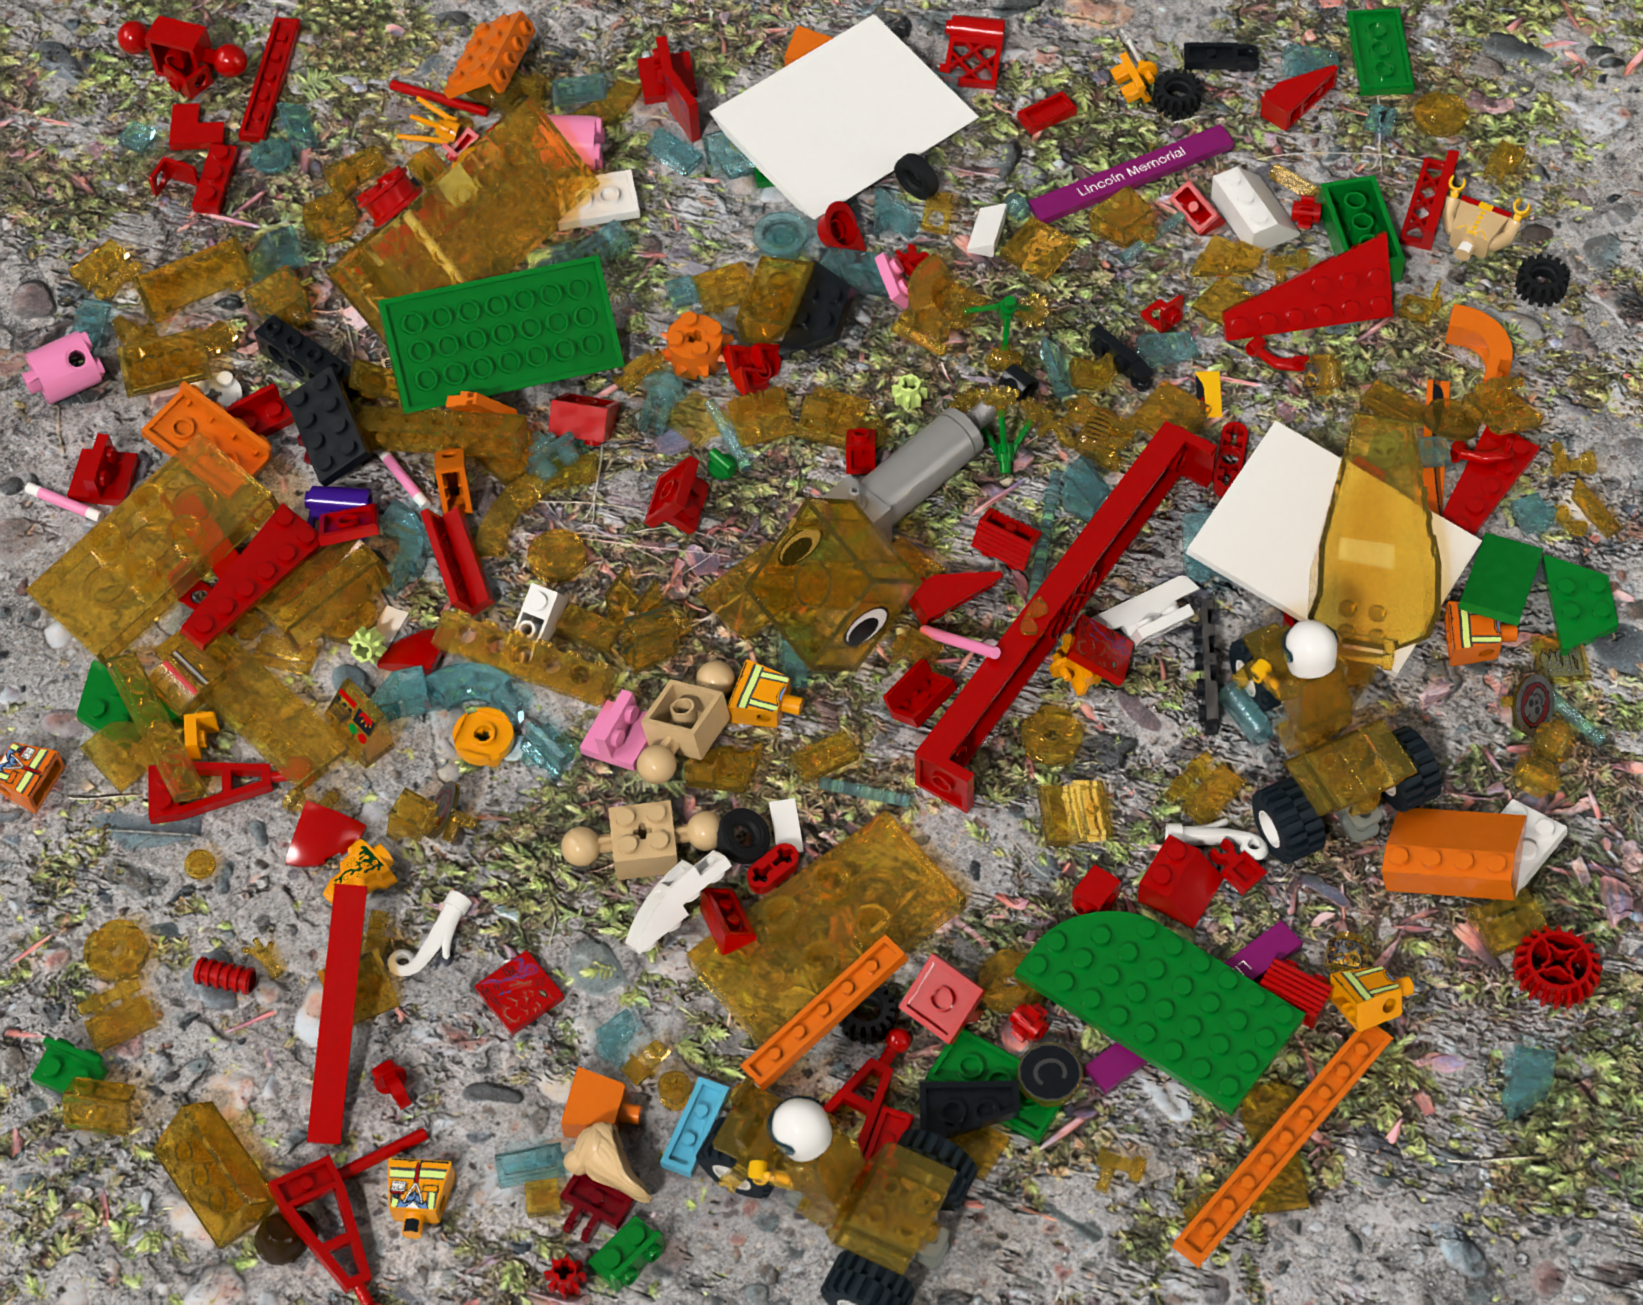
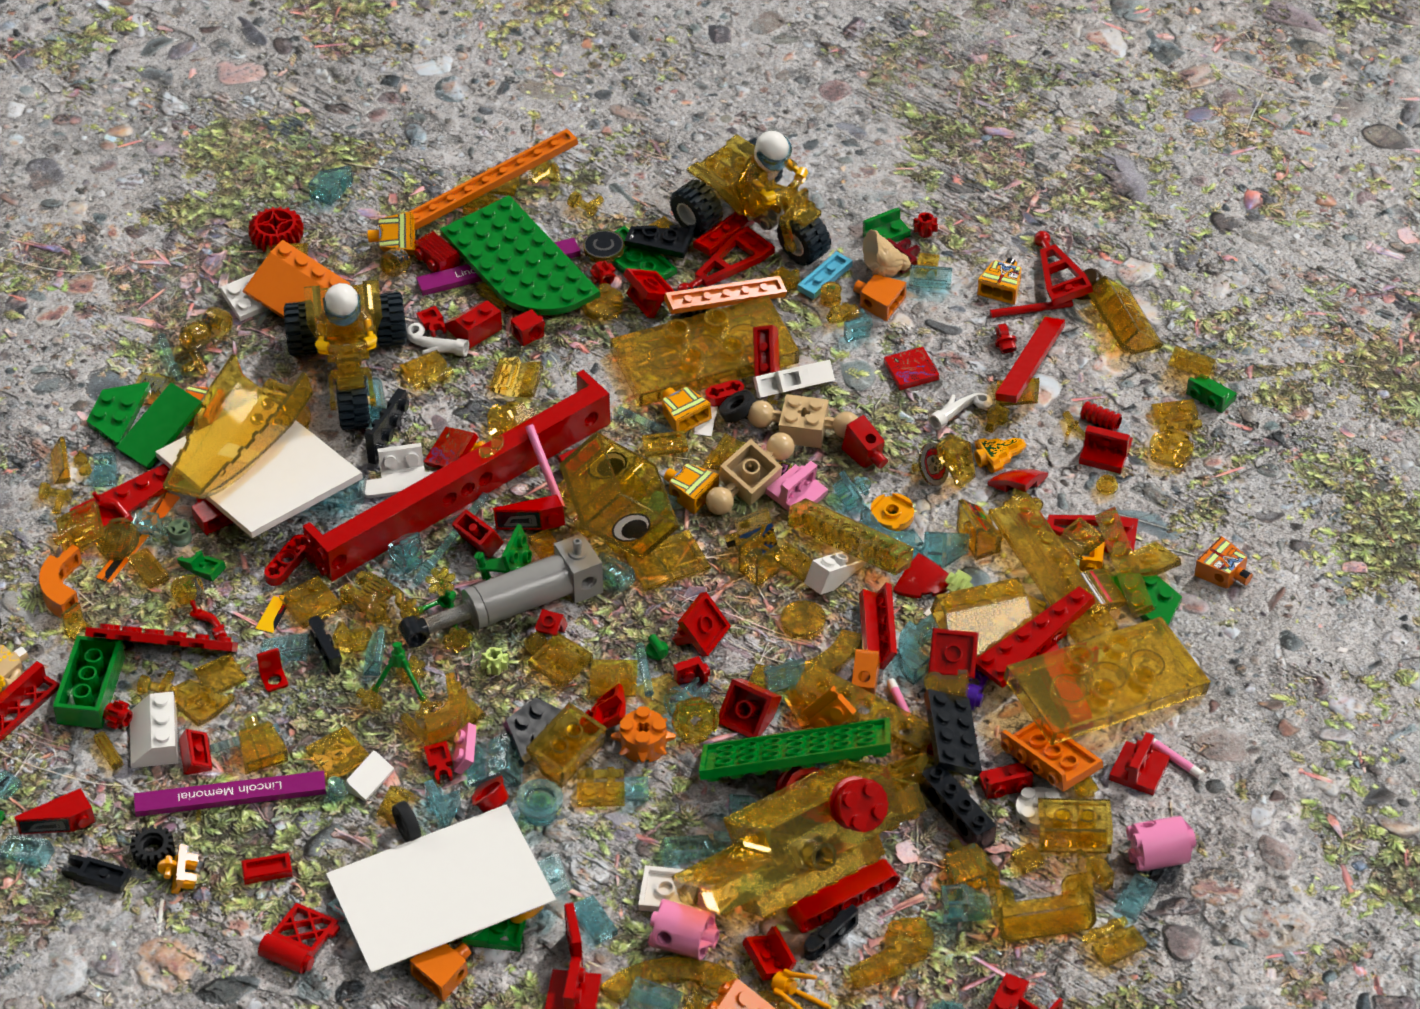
camera: 165 degrees left, 10 degrees down
(209, 926) = (1105, 449): none -> red bracket
(217, 738) = (1081, 538): none -> clear yellow plate
(347, 477) = (949, 684): none -> clear yellow leg
(544, 815) = (864, 443): none -> red torso
(670, 444) = (690, 669): none -> red bracket
(816, 814) = (685, 409): none -> light orange torso
(951, 503) = (514, 556): none -> green plate
(1031, 689) = (516, 416): none -> clear yellow plate
(1325, 425) = (204, 567): none -> green slope

